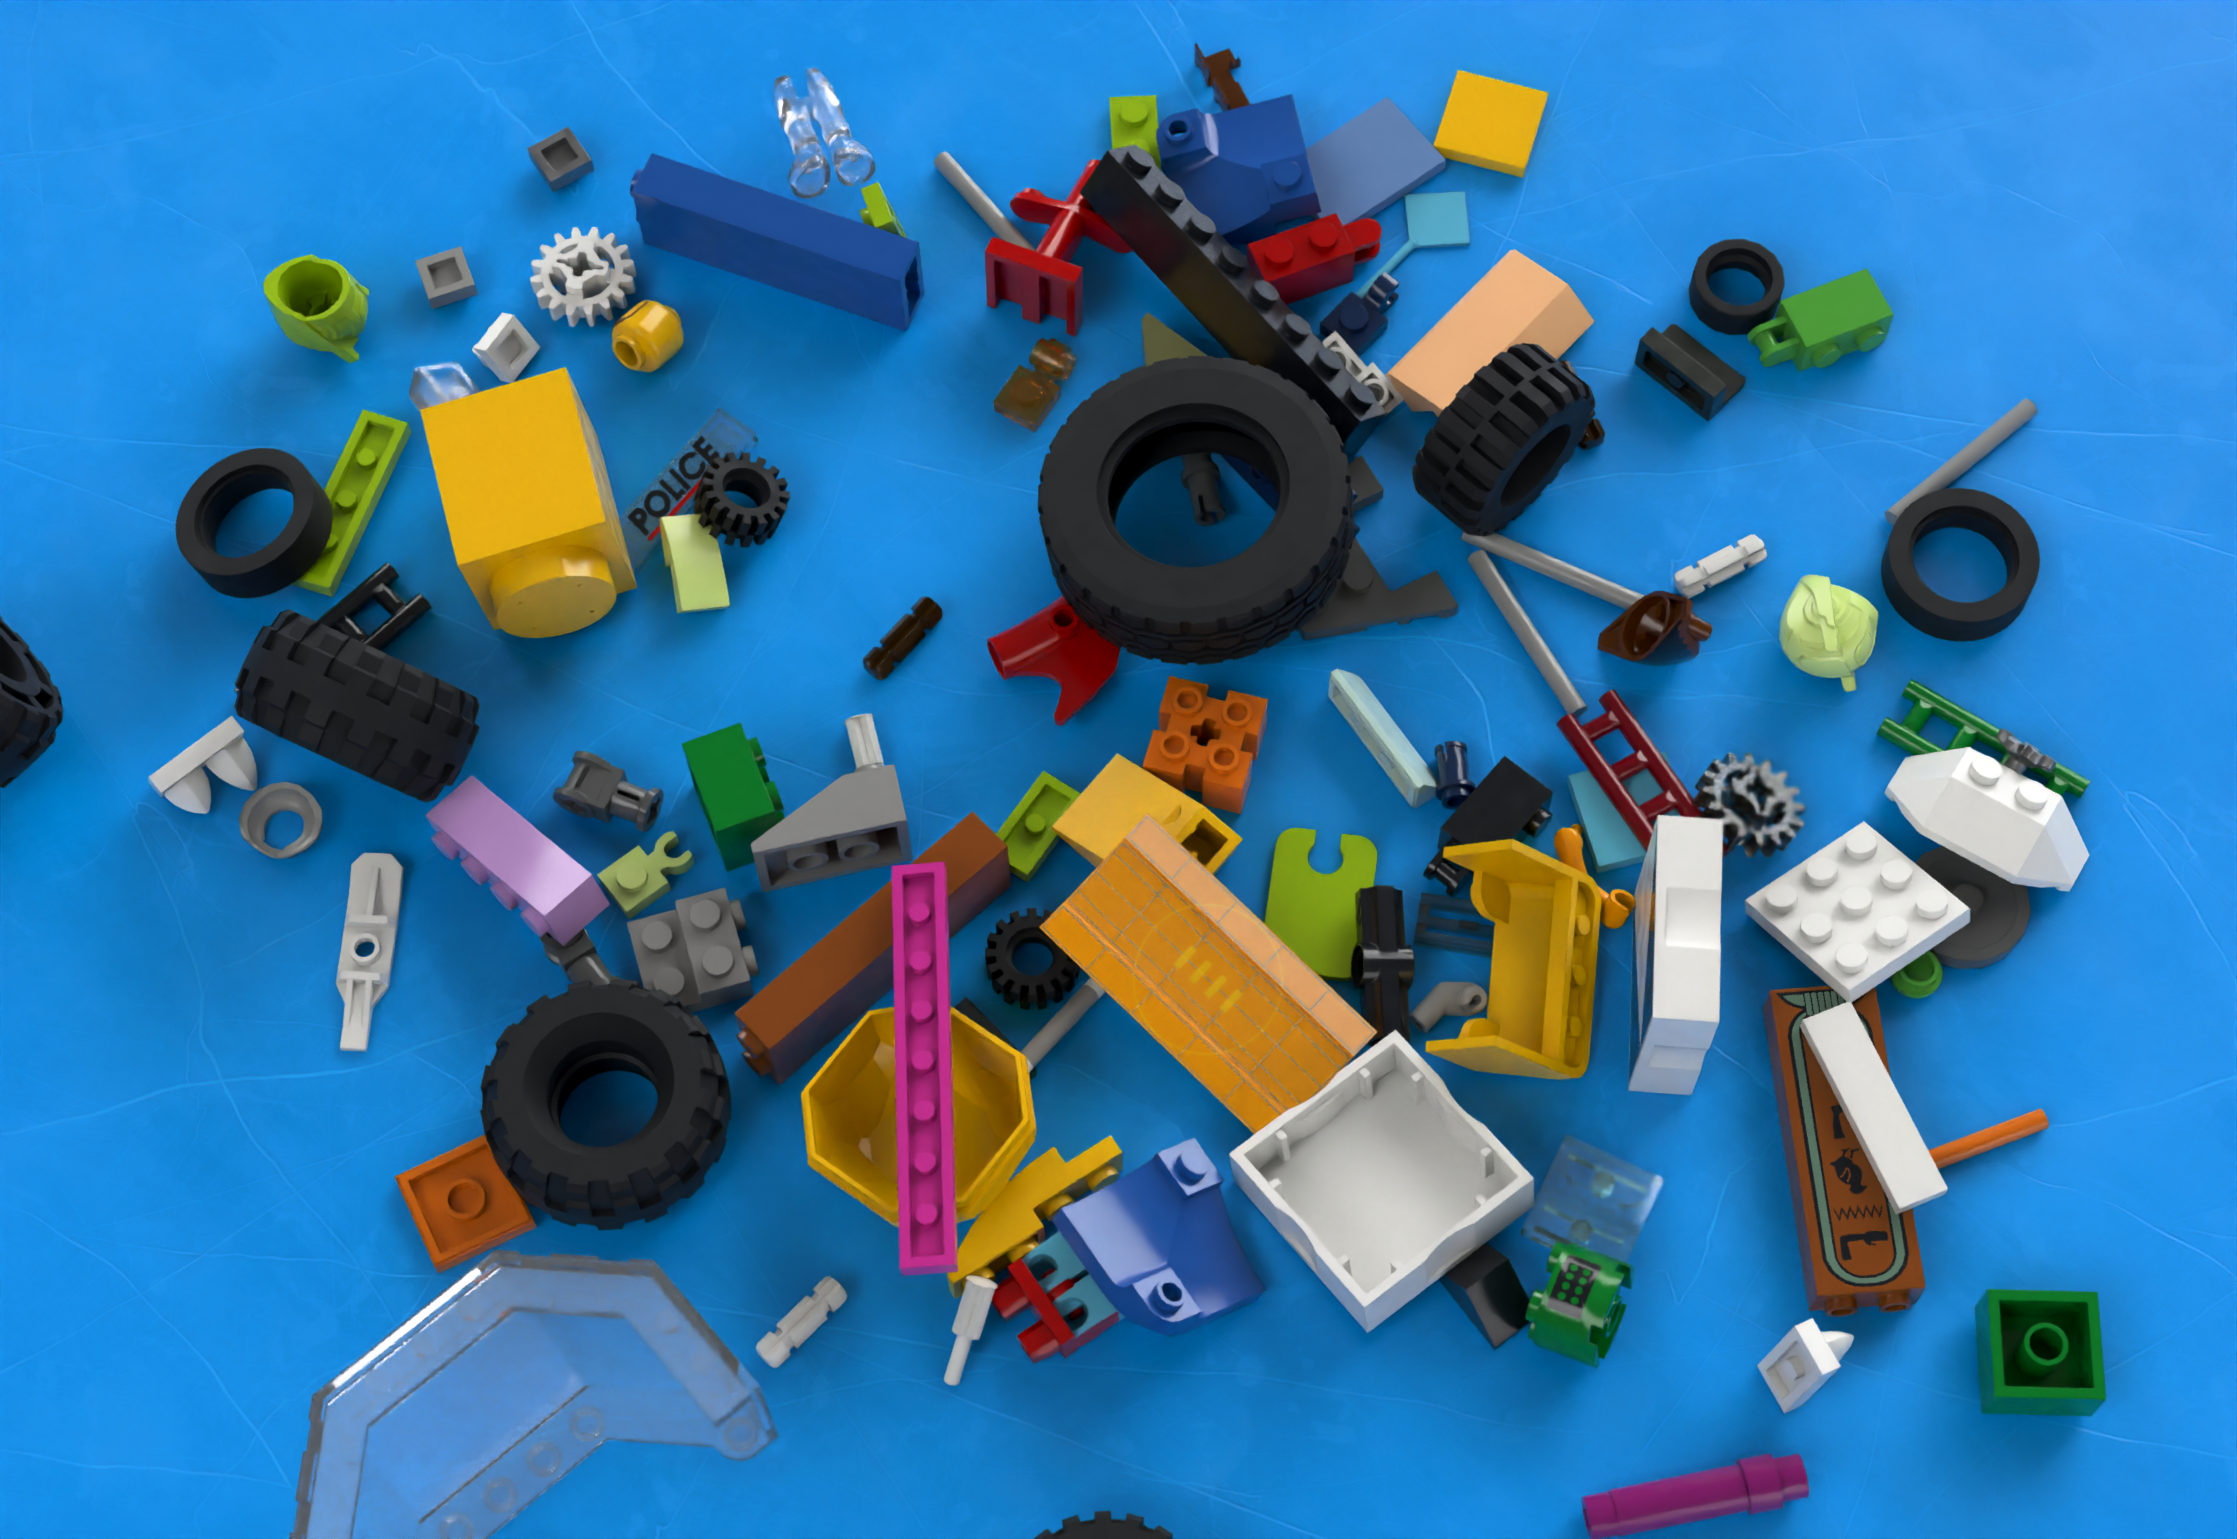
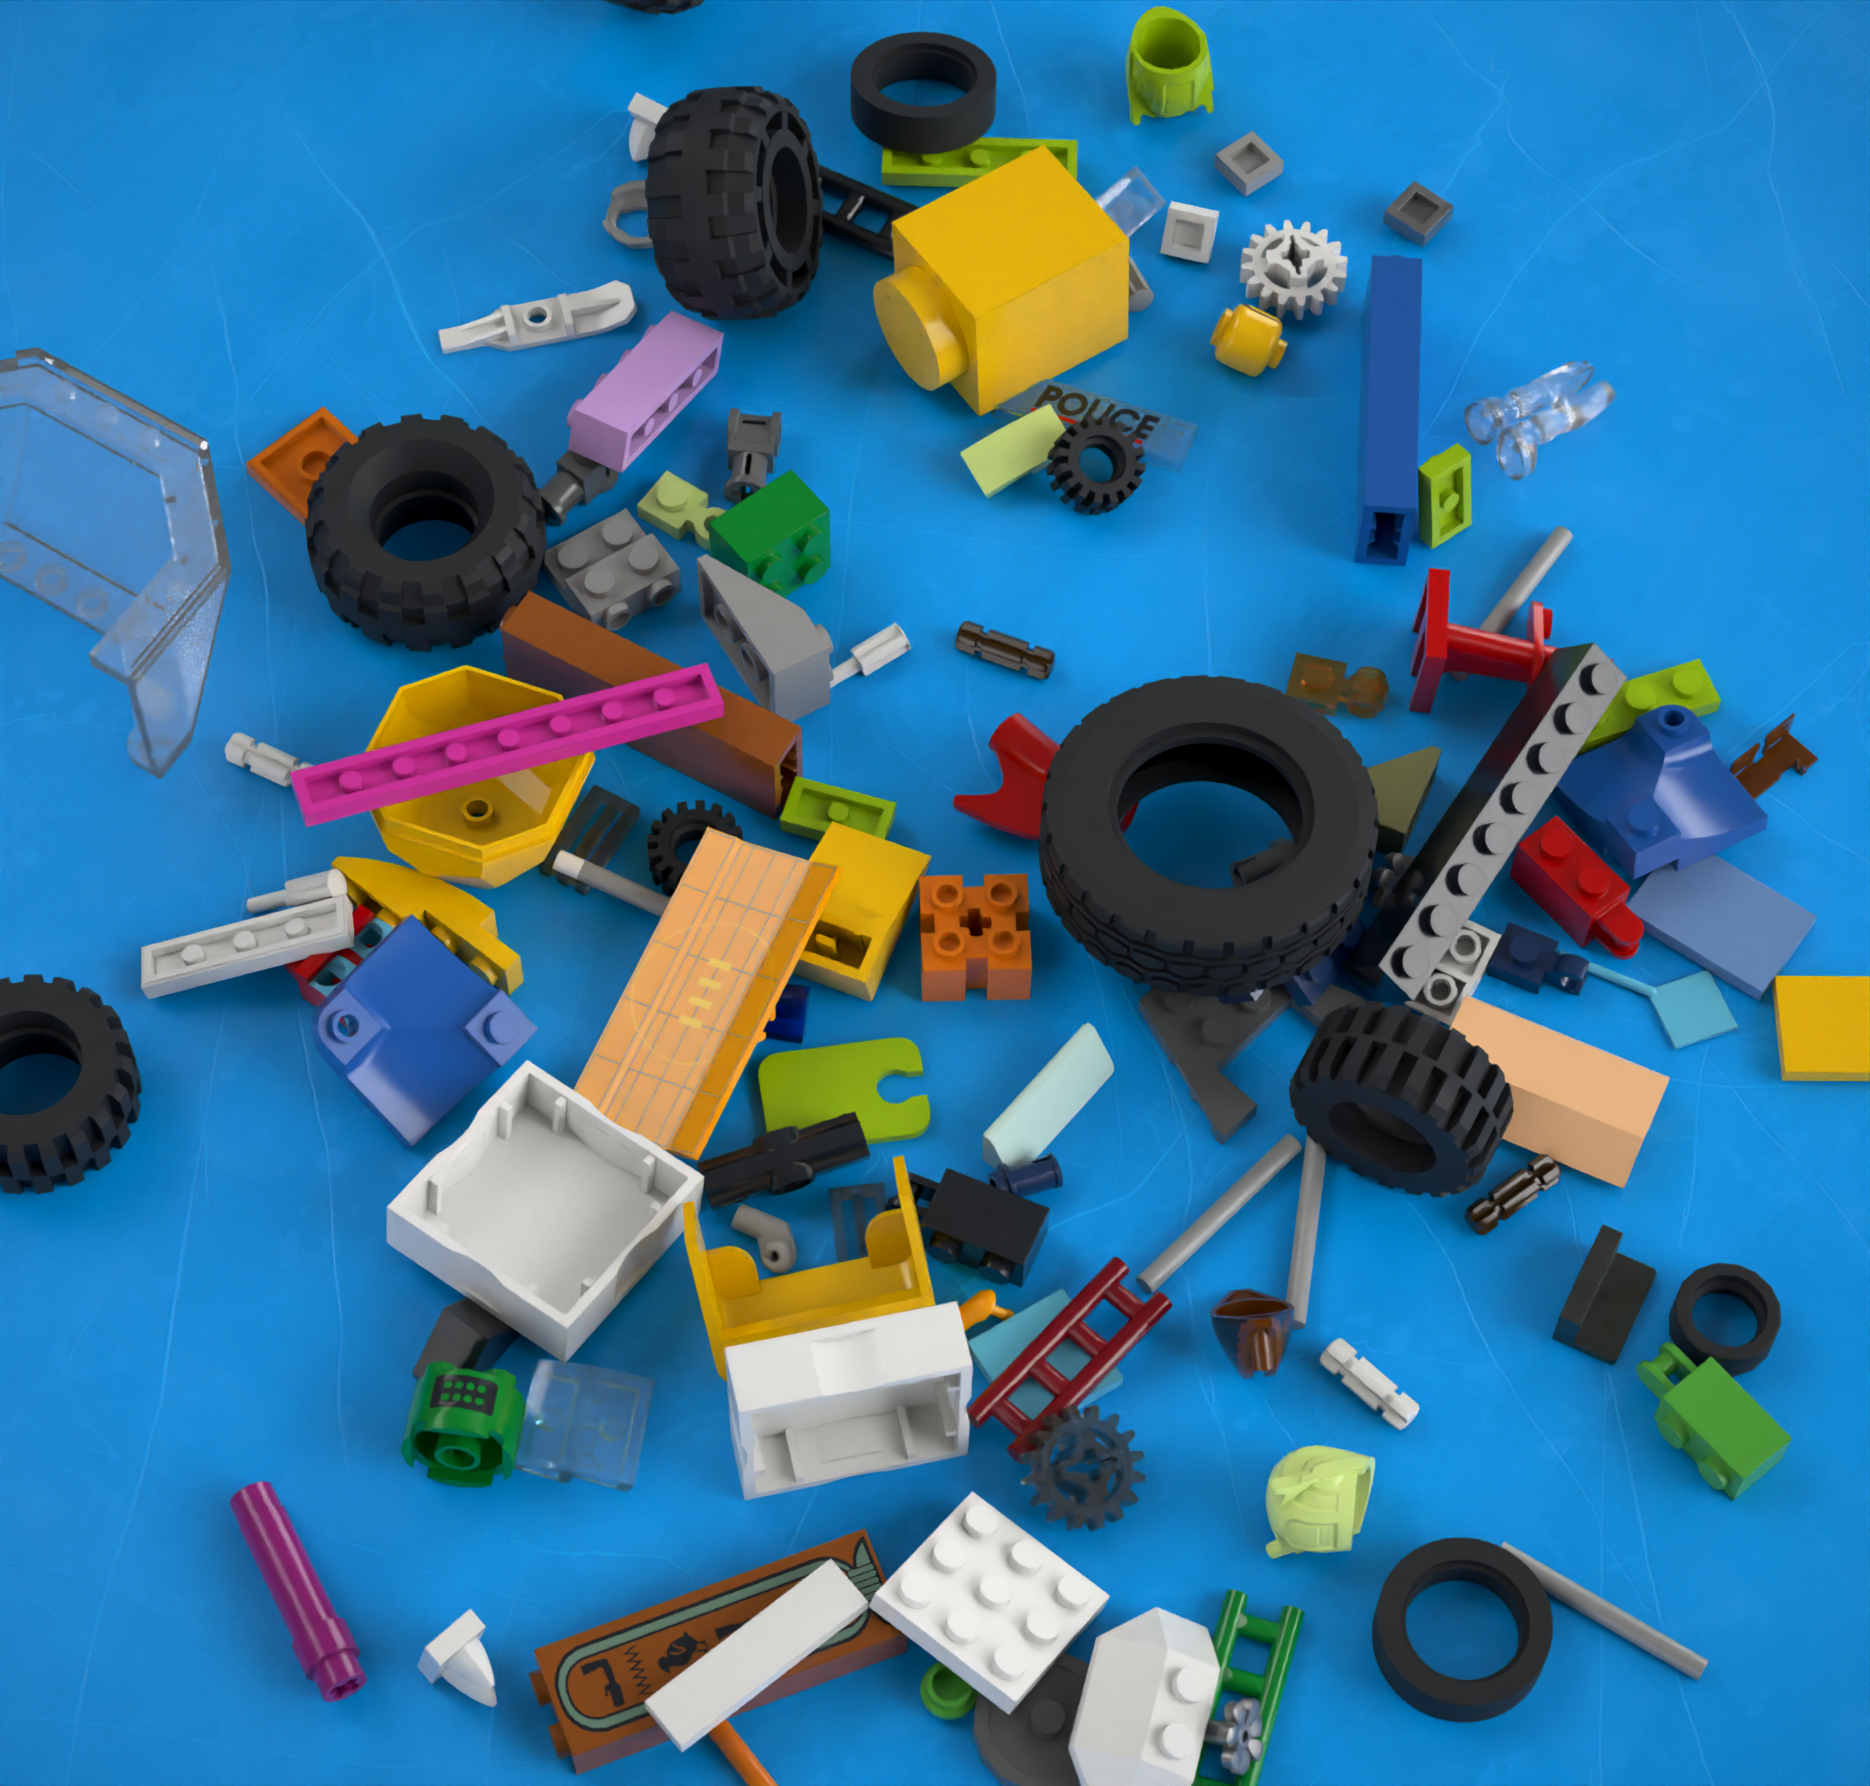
camera: 70 degrees right, 5 degrees down
(1012, 1388) = (247, 946): none -> white tile

